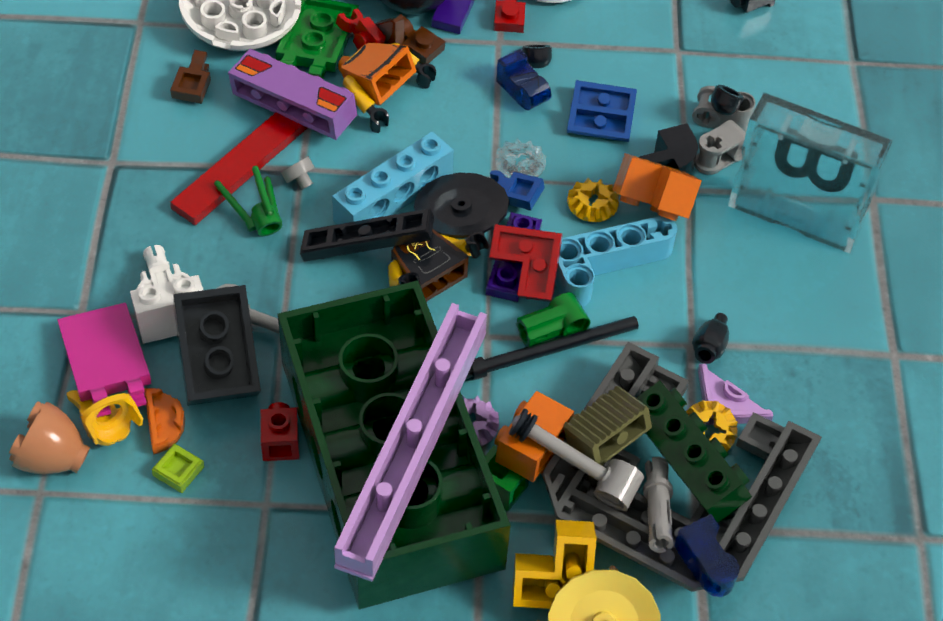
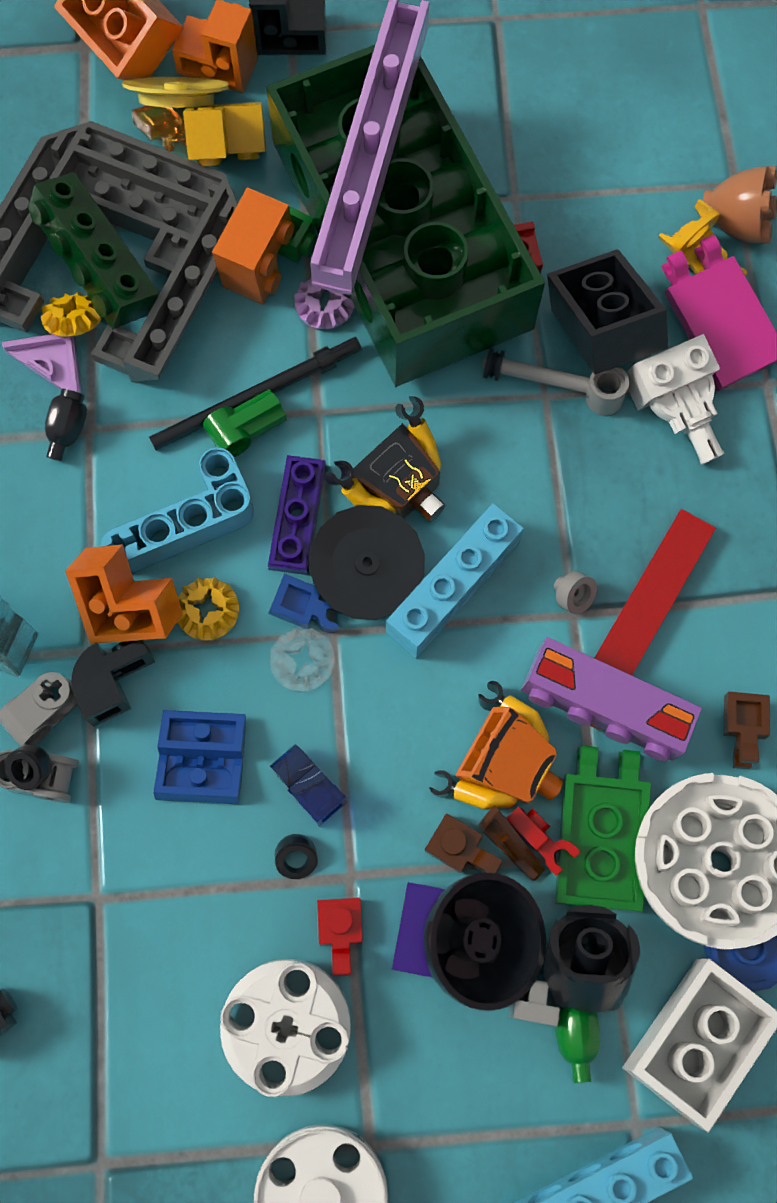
camera: 175 degrees right, 20 degrees up
(164, 418) = (642, 259): orange tile -> none
(178, 468) = (610, 217): lime tile -> none
(265, 214) = (602, 519): green plant -> none
(367, 235) = (470, 487): black plate -> none
(537, 253) = (270, 481): red plate -> none
(608, 425) = (176, 244): olive brick -> none
(615, 483) = (169, 192): light grey piece -> none
(658, 493) = (123, 190): light grey pin -> none
(706, 558) = (69, 124): clear blue leg -> none

